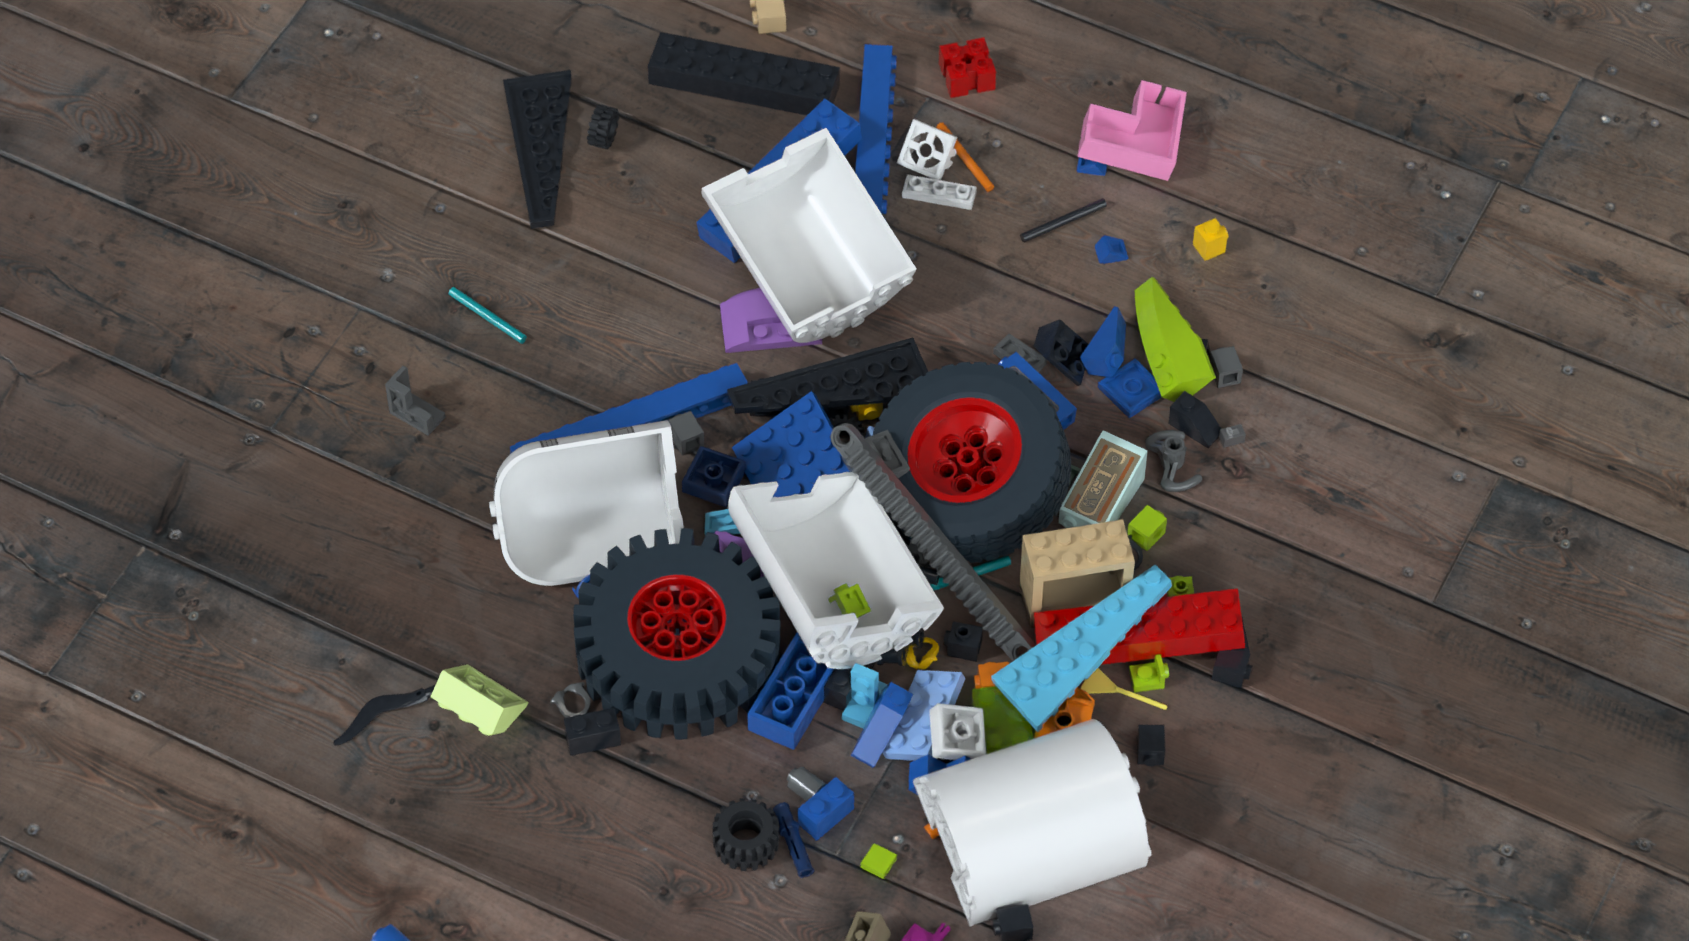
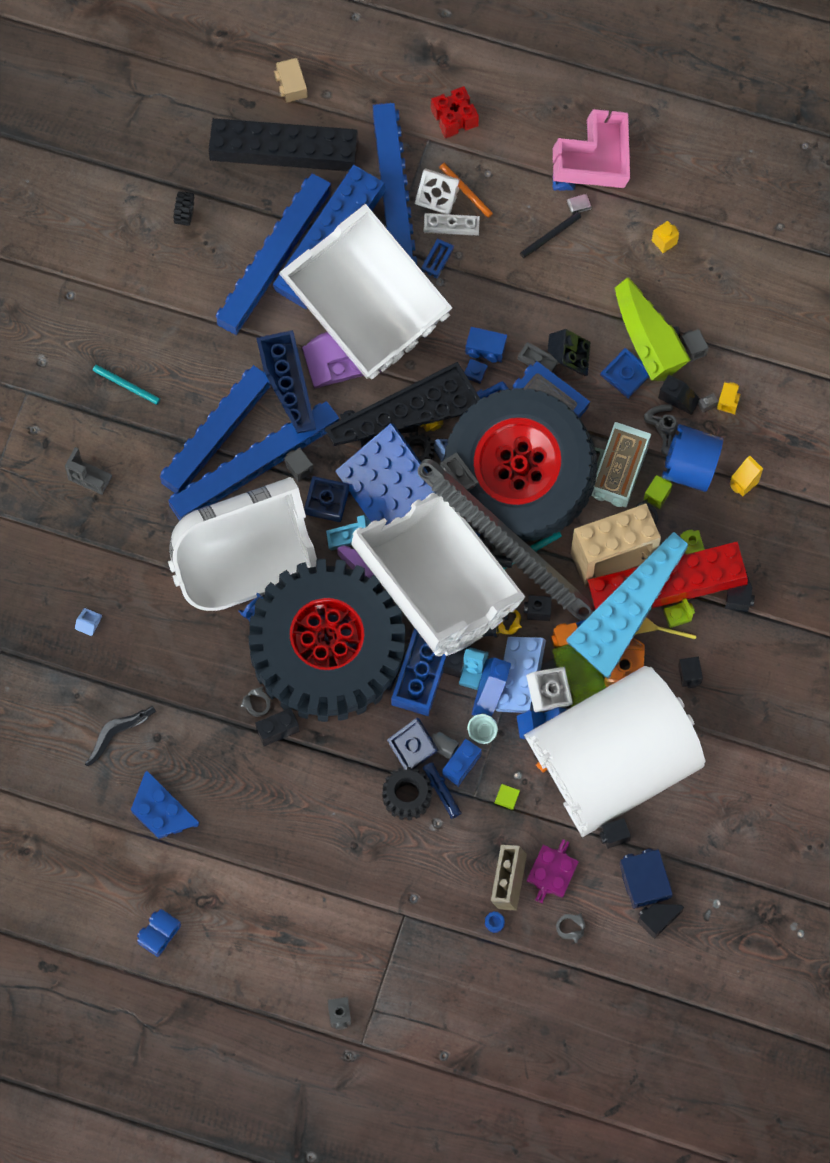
camera: 10 degrees left, 15 degrees up
(375, 577) = (88, 621): none -> light blue slope
(418, 809) = (159, 809): none -> blue wing
(478, 699) = (187, 713): yellowish green slope -> none
(538, 126) = (132, 211): black wing -> none
(590, 378) = (216, 430): none -> blue brick
(680, 214) = (273, 254): none -> blue brick
(690, 326) = (286, 377): none -> dark blue wedge
(765, 776) = (412, 744): none -> tile
(850, 600) = (453, 598): lime bracket -> none
(861, 771) = (482, 728): none -> light aqua hair
(908, 240) = (431, 271): none -> blue tile
(937, 357) = (475, 371): none -> blue plate
(955, 329) = (486, 344): none -> blue brick
(1107, 347) = (602, 347): blue slope -> none
(1108, 190) = (579, 204): none -> flat silver piece
(1110, 250) = (590, 255): blue slope -> none
(1197, 488) = (692, 458): none -> blue brick
(1259, 433) = (729, 398): none -> yellow brick
(1266, 523) = (746, 476): none -> yellow slope

